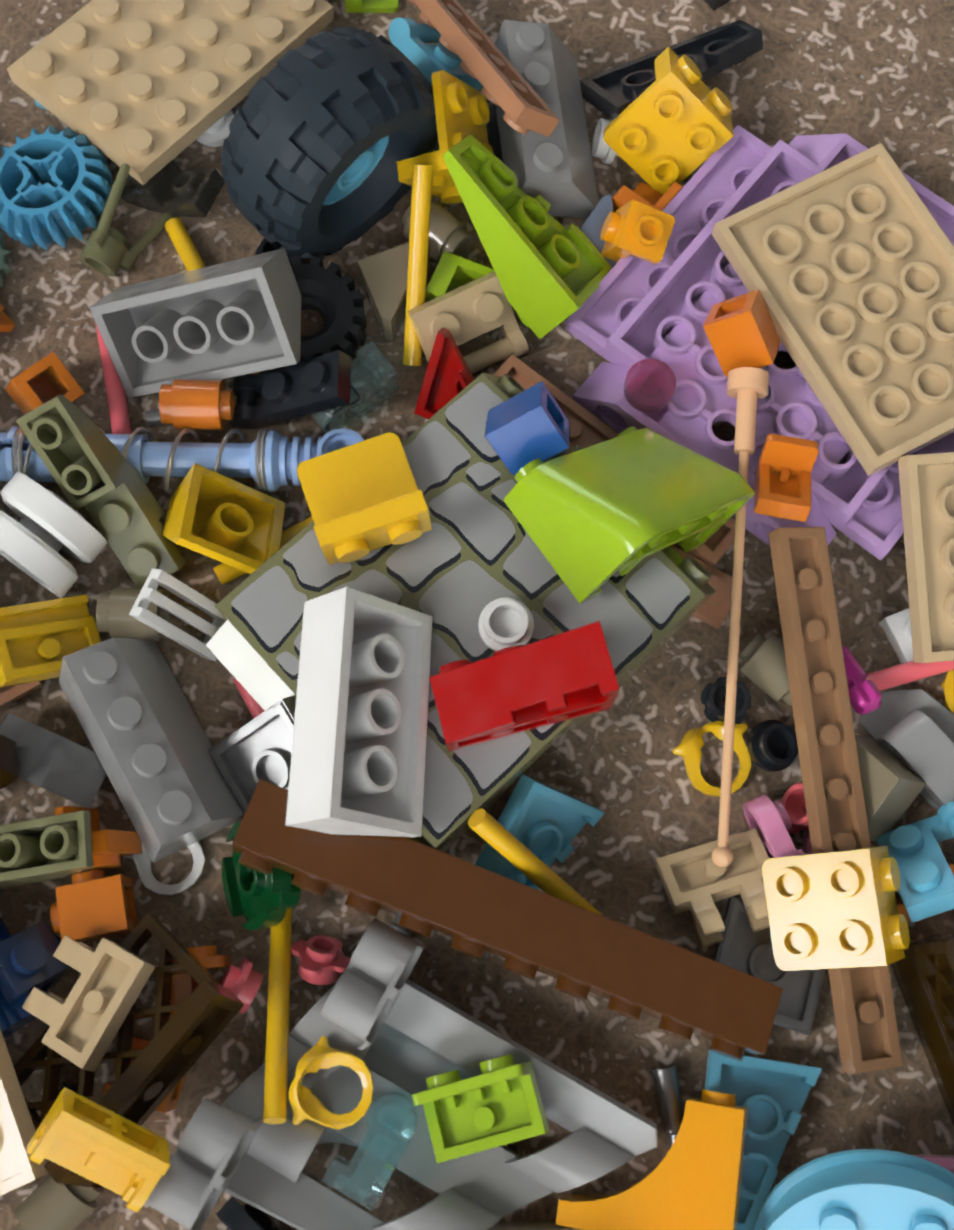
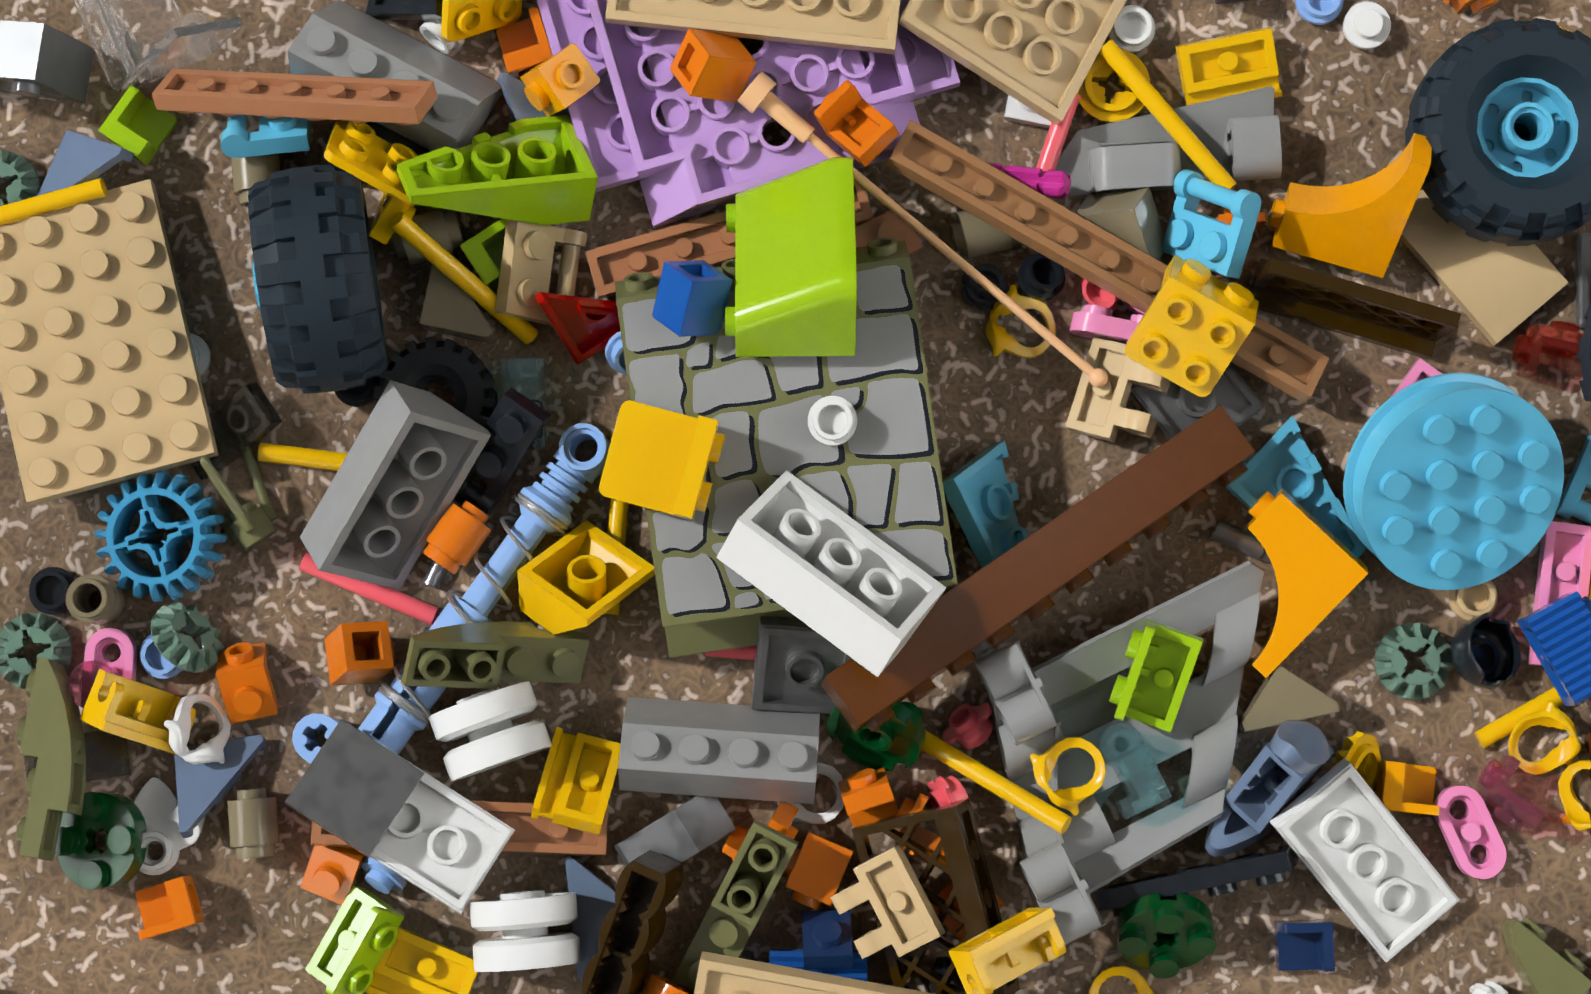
camera: 55 degrees left, 10 degrees up
(114, 616) = (601, 696): dark tan brick -> none
(149, 594) = (653, 647): white tile -> none
(191, 908) = (867, 796): none -> orange bracket
(524, 859) = (1011, 524): yellow bar -> none
(525, 687) = (891, 442): red wedge -> none
(649, 385) = (702, 168): clear pink tile -> none

